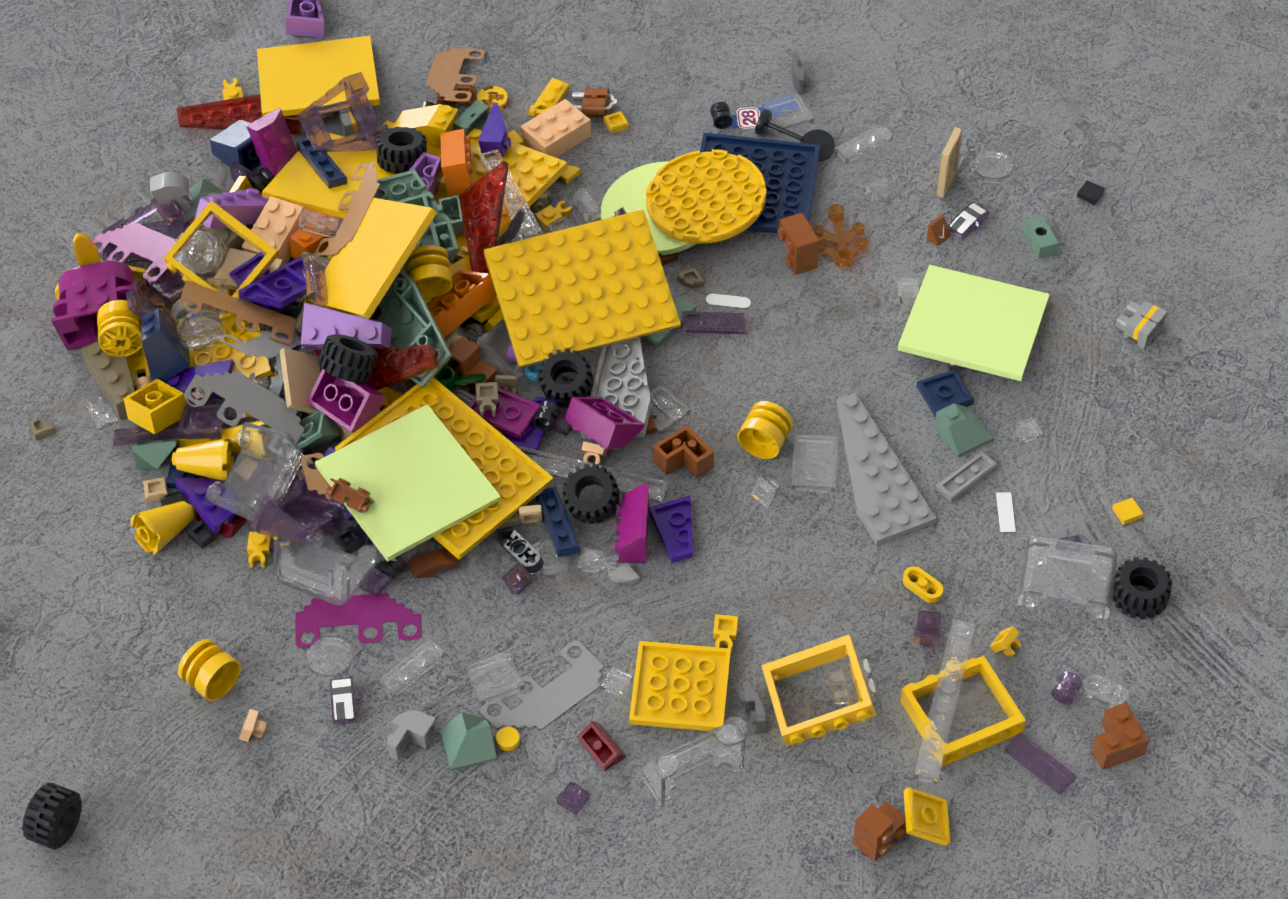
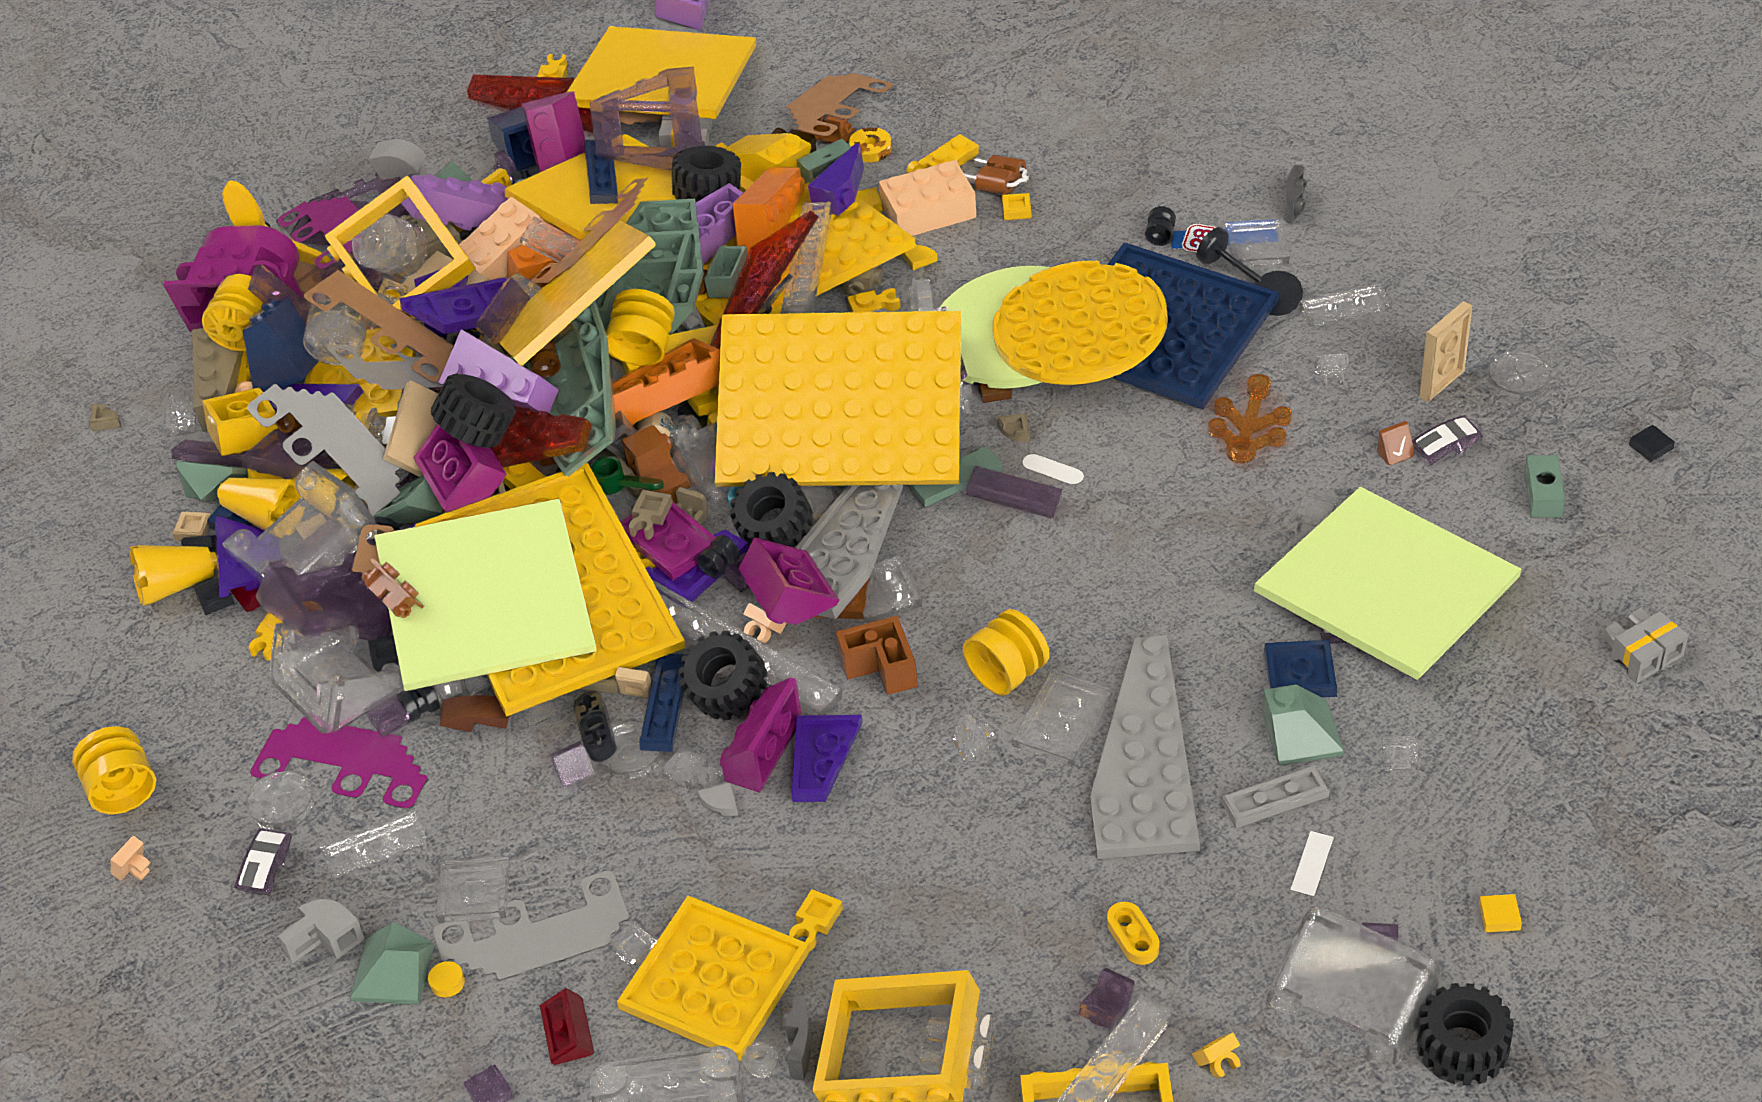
camera: 25 degrees right, 5 degrees down
(800, 243) = (1178, 413): dark orange brick -> none

